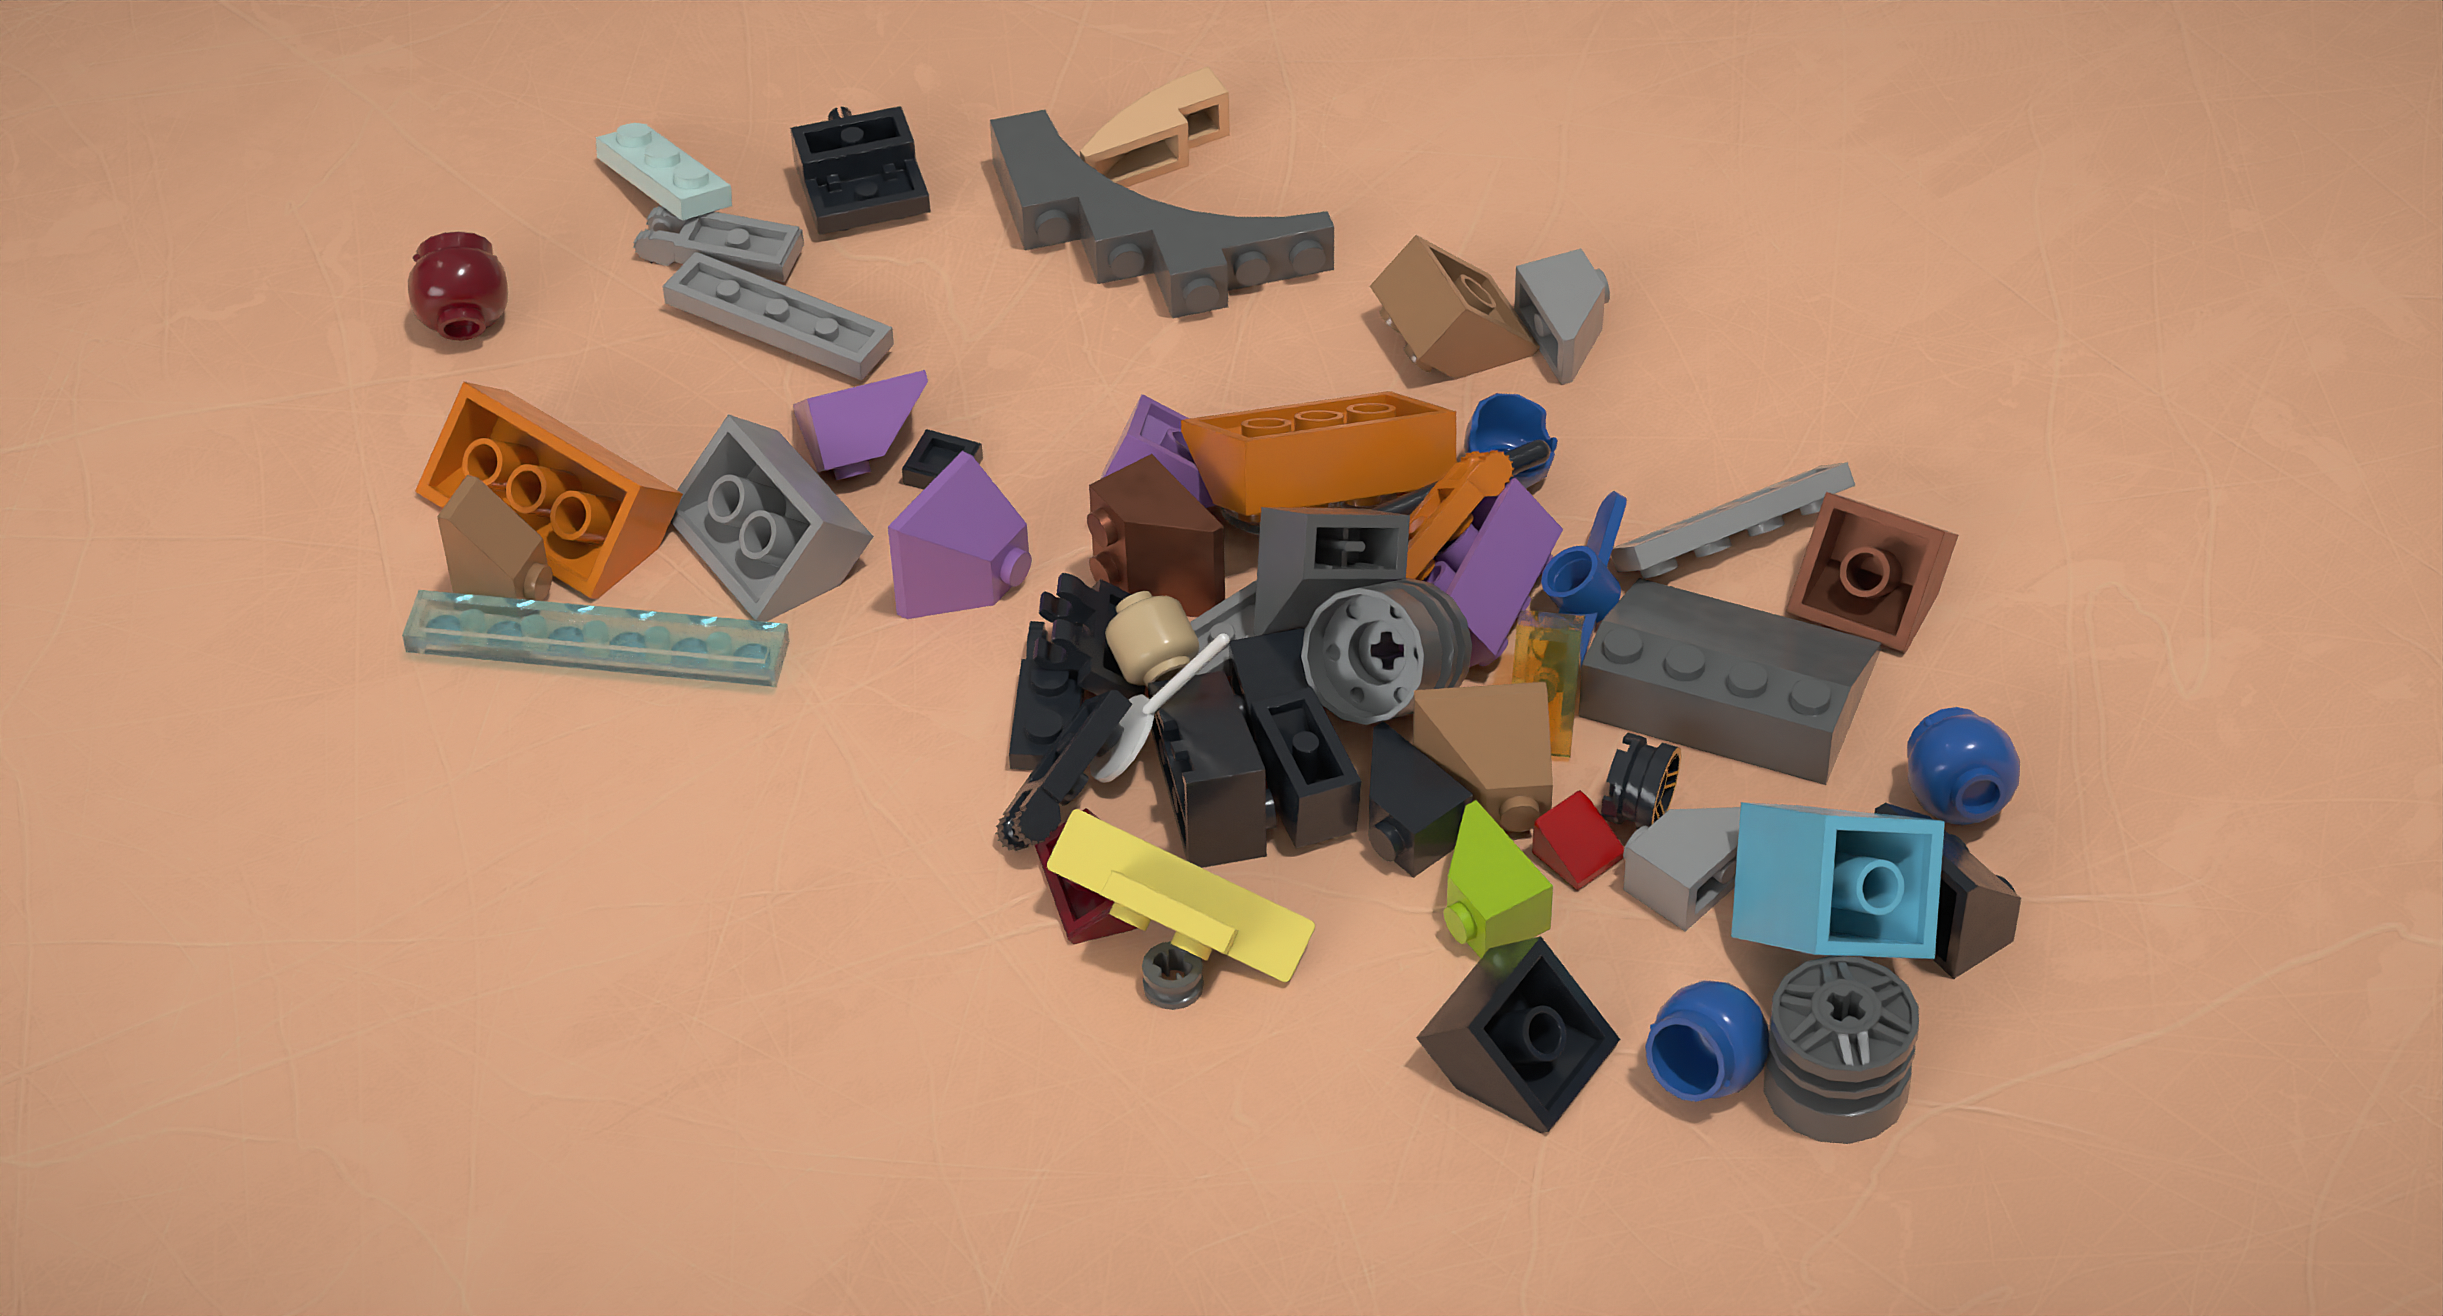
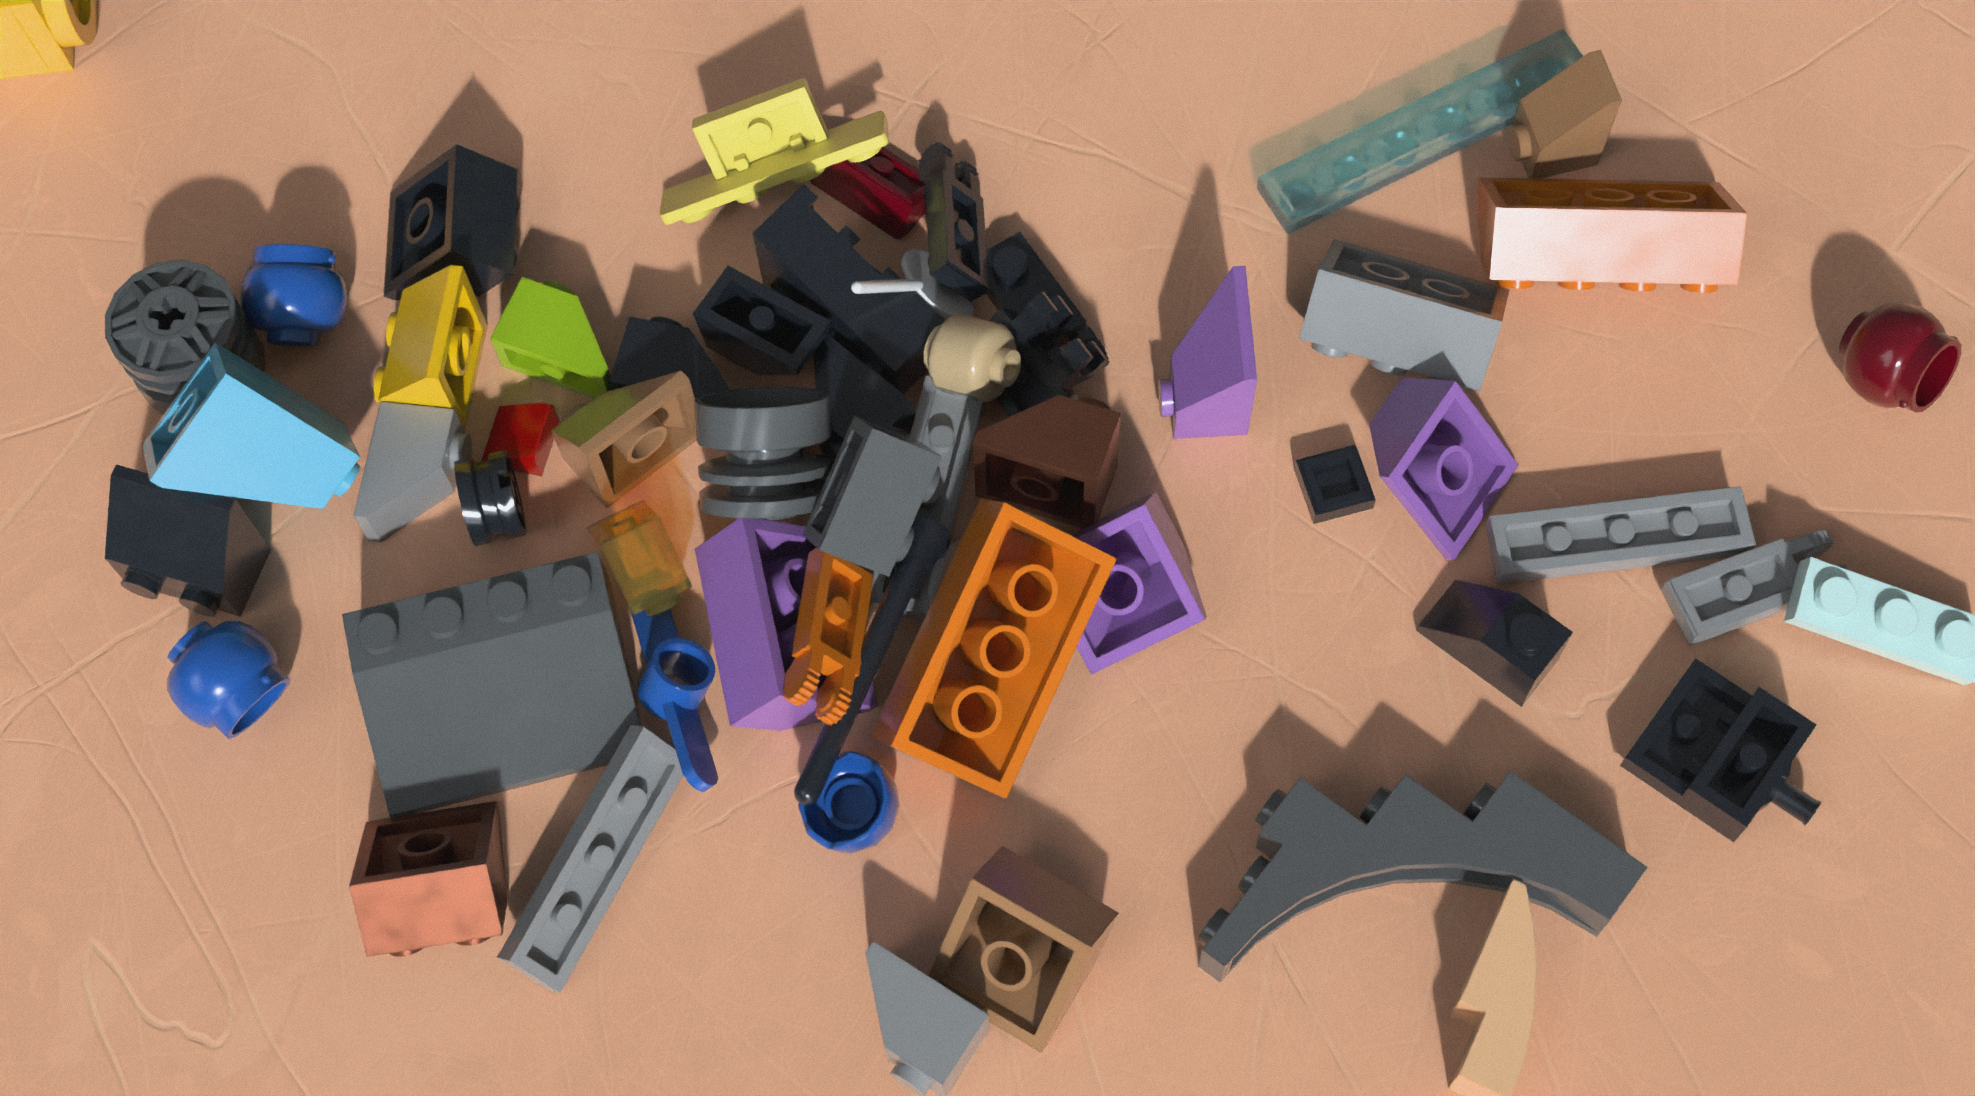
camera: 145 degrees right, 20 degrees up
(936, 300) = (1496, 636): none -> black slope
(1616, 909) = (434, 345): none -> yellow slope

